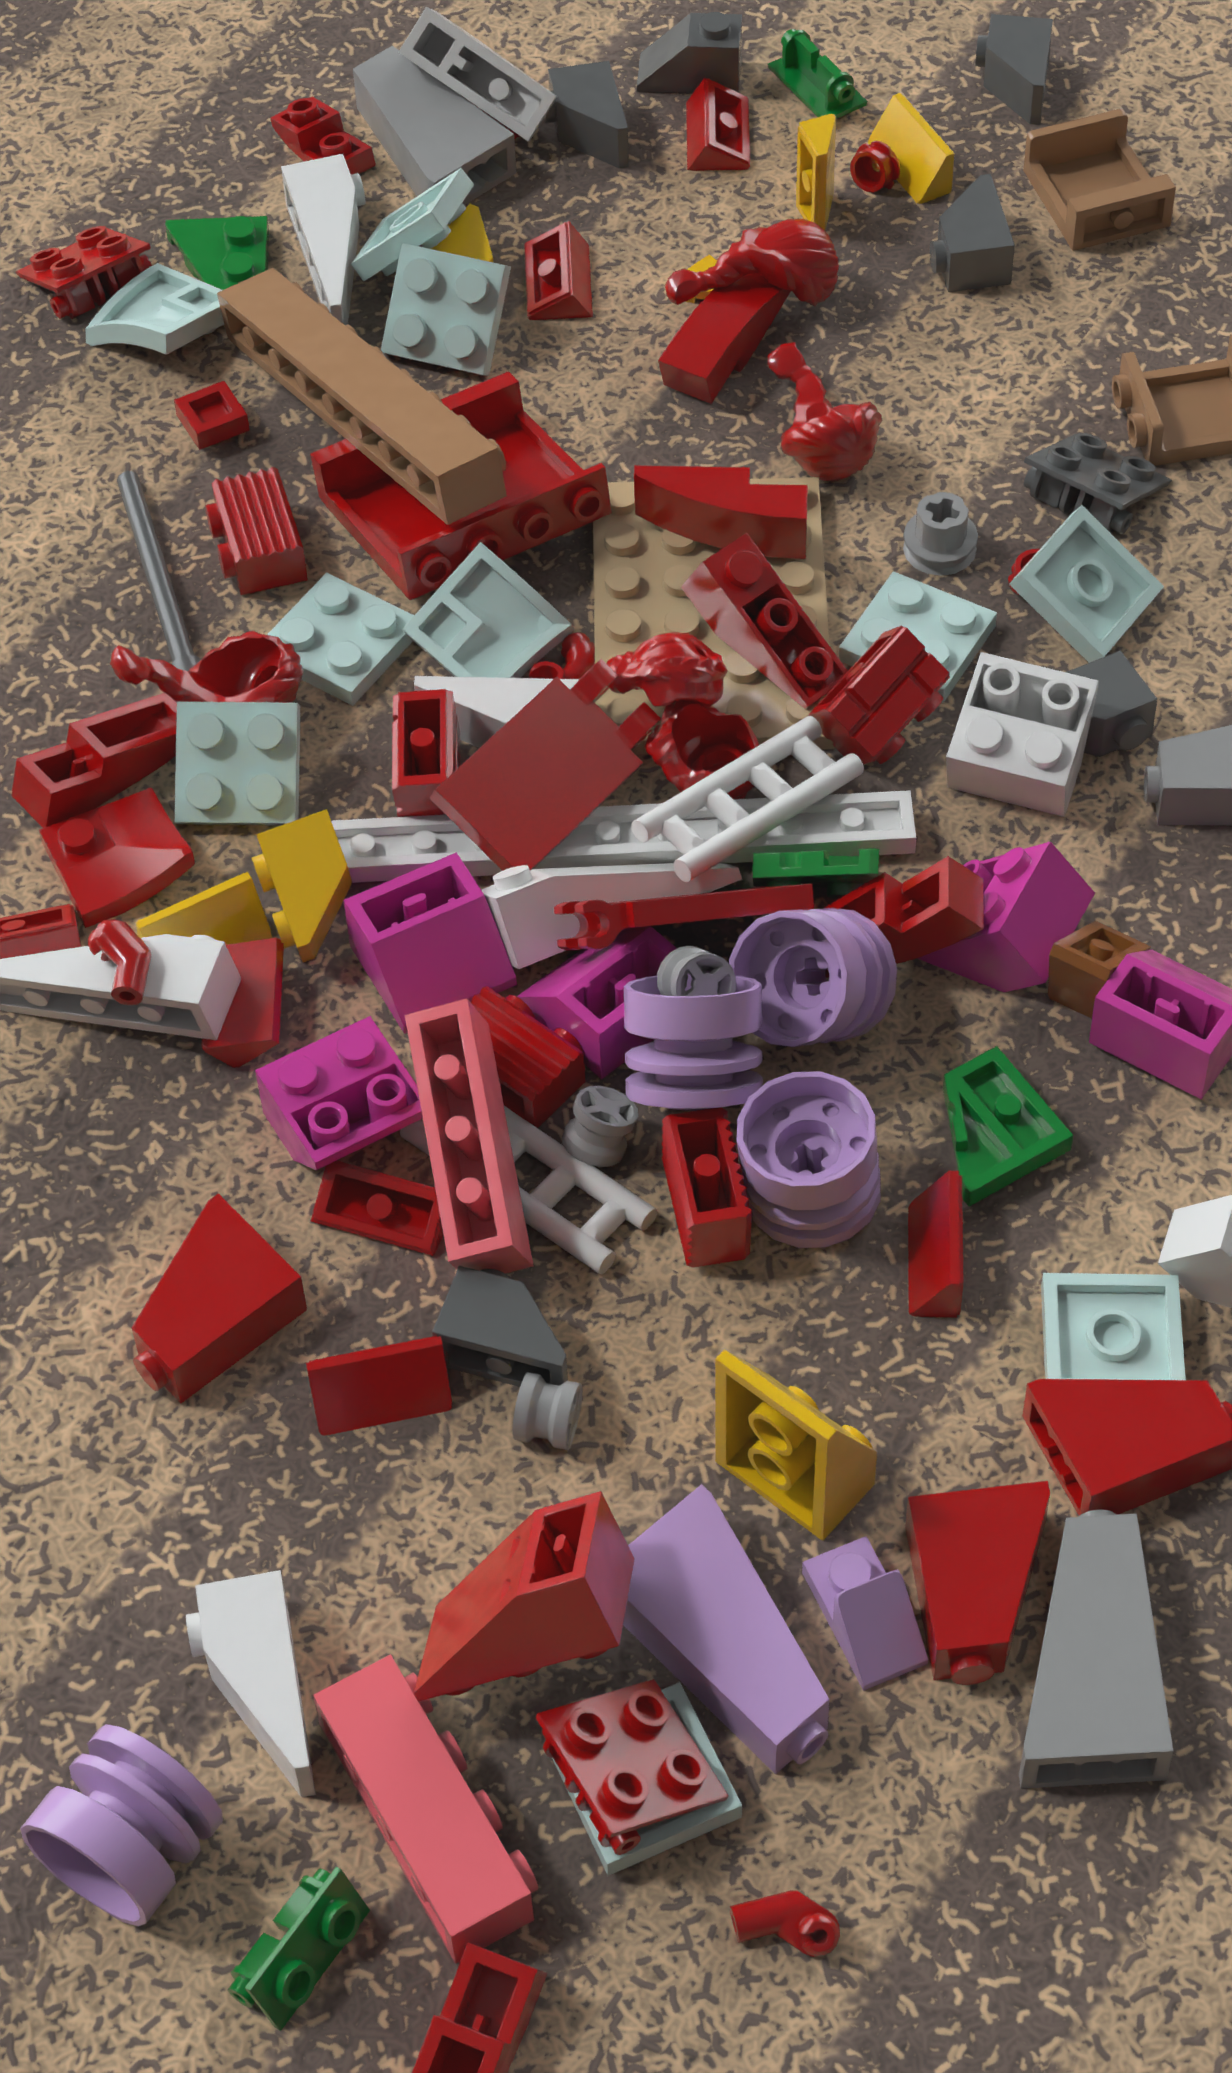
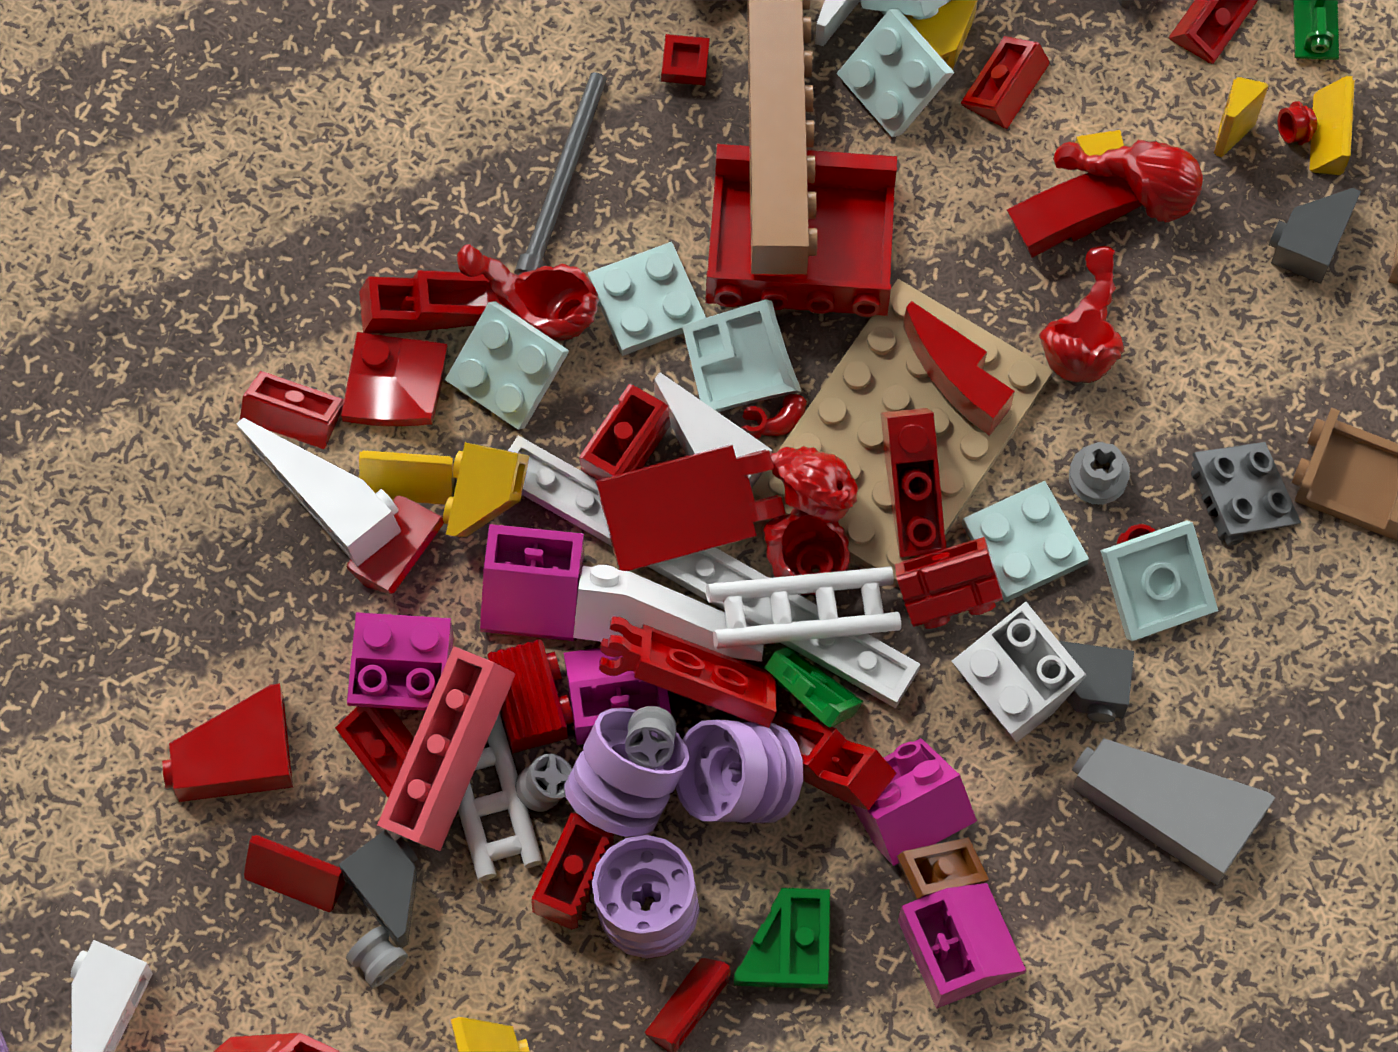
camera: 30 degrees right, 15 degrees up
(130, 955) = (327, 483): red arm -> none
(257, 530) = (648, 180): red brick -> none

